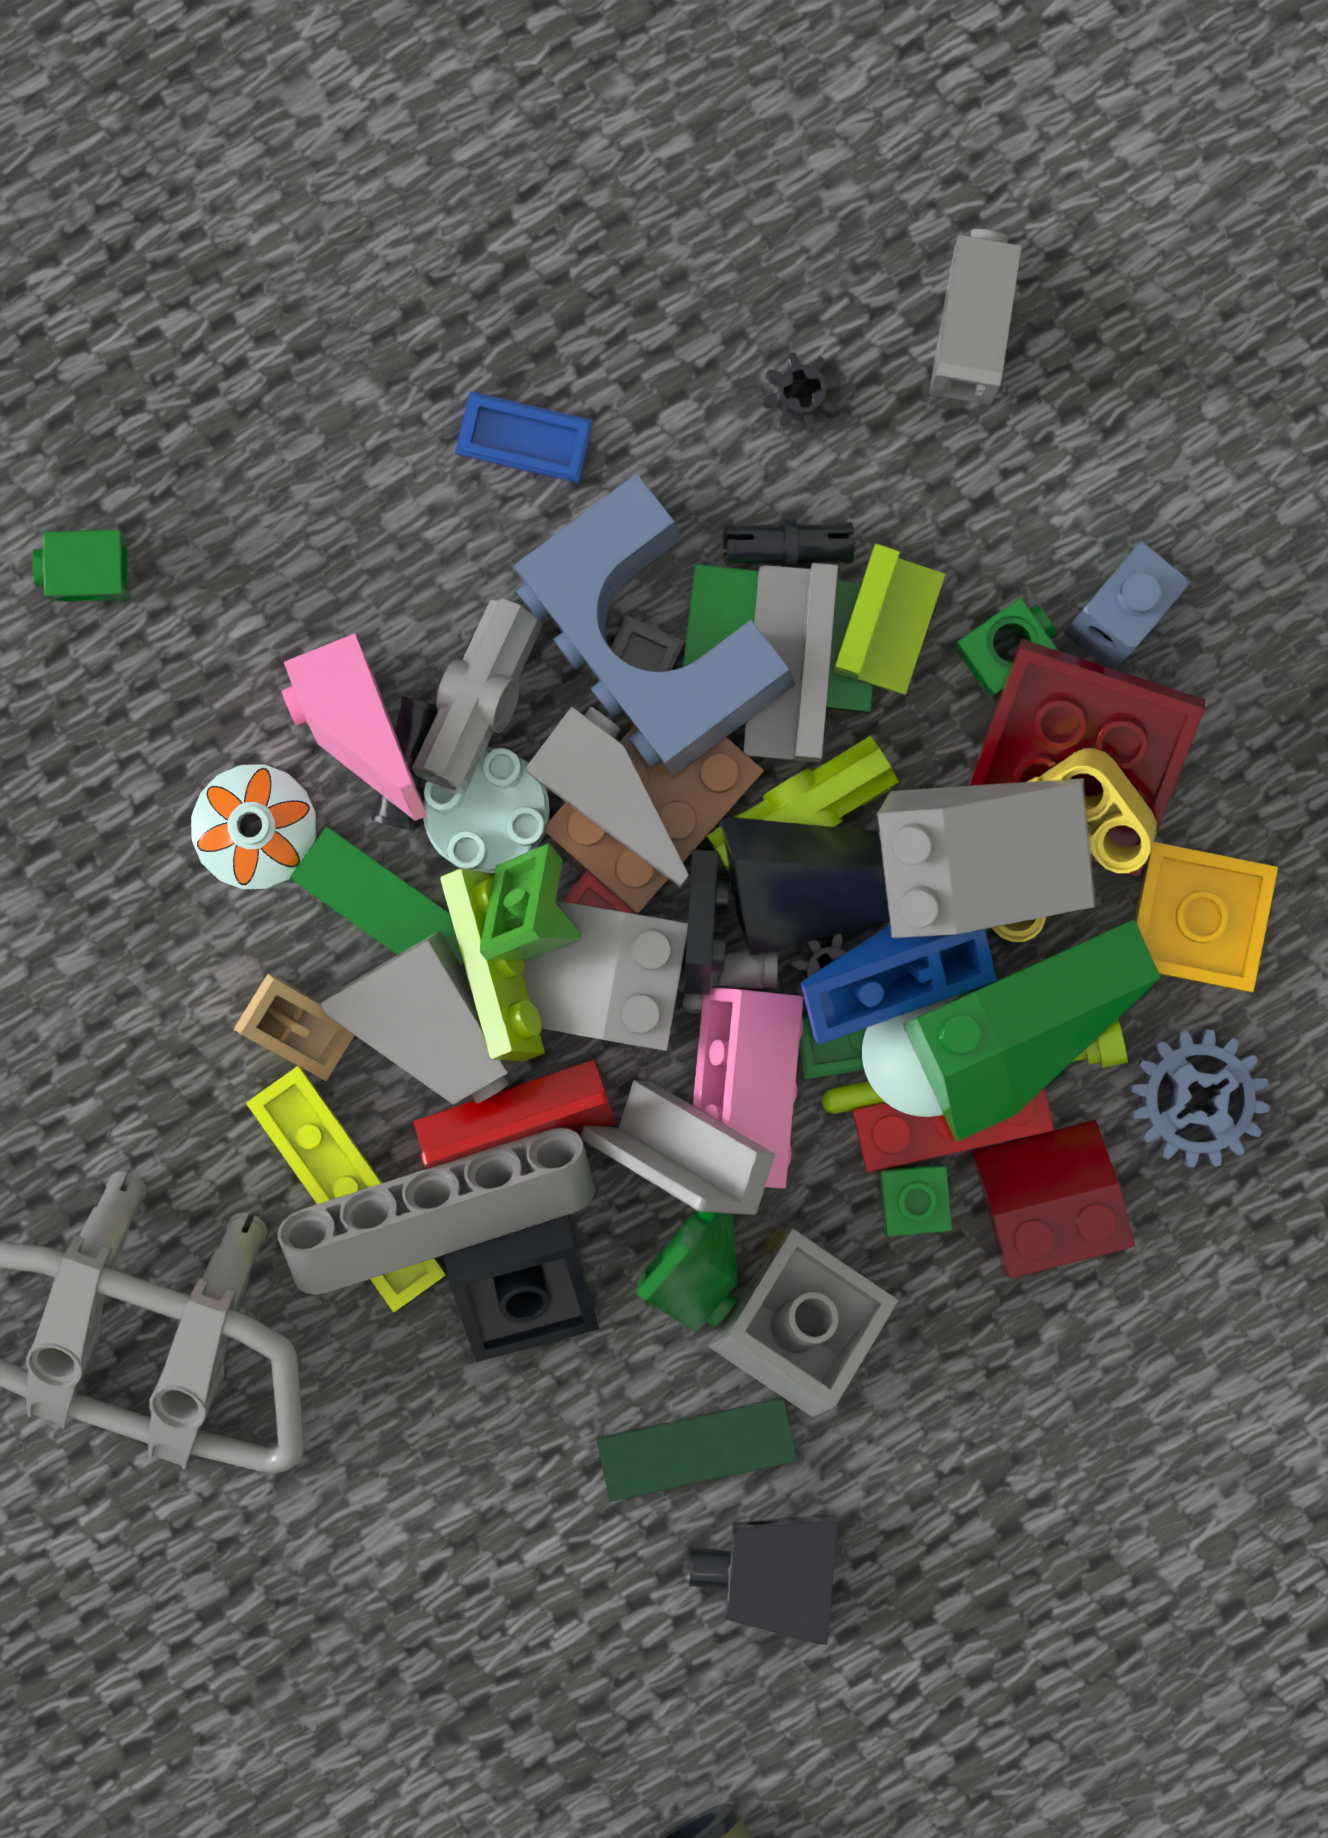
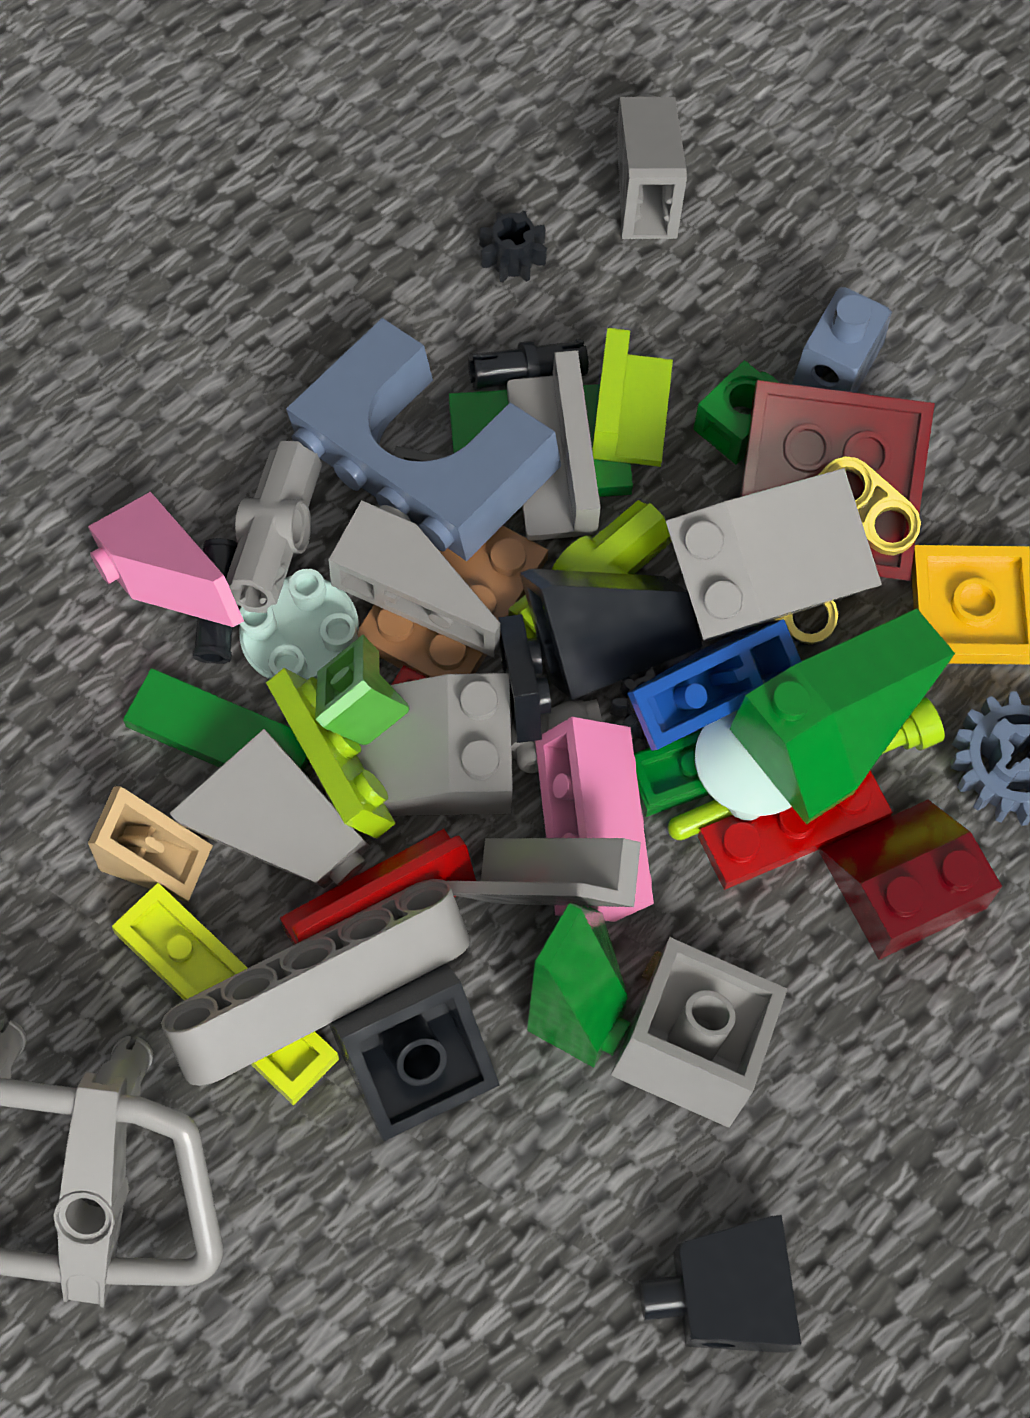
camera: 15 degrees left, 20 degrees down
(285, 833) = (86, 711): light aqua dish -> none
(524, 437) = (276, 325): blue tile -> none
(696, 1449) = (621, 1184): dark green tile -> none
(915, 1200) = (779, 894): green brick -> none

